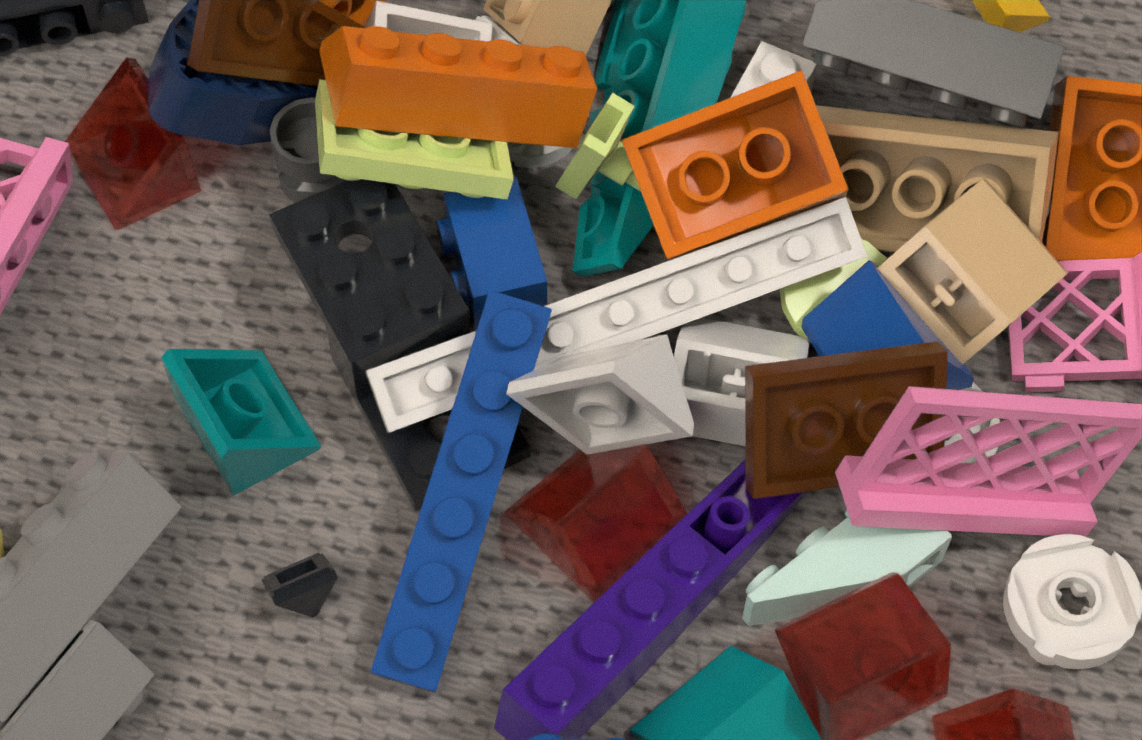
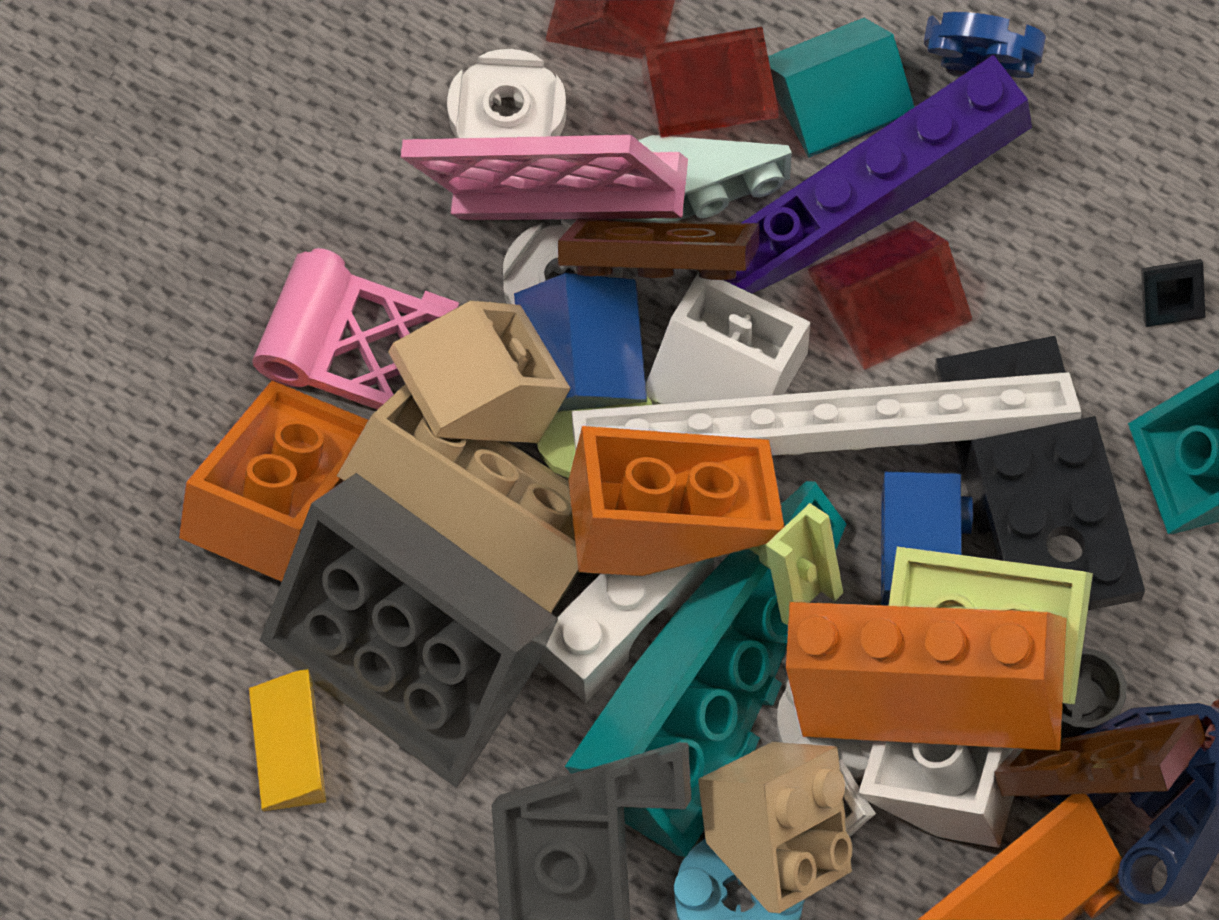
camera: 160 degrees left, 5 degrees up
(460, 494) = (1010, 308): blue plate -> none
(610, 396) = (875, 315): white slope -> none

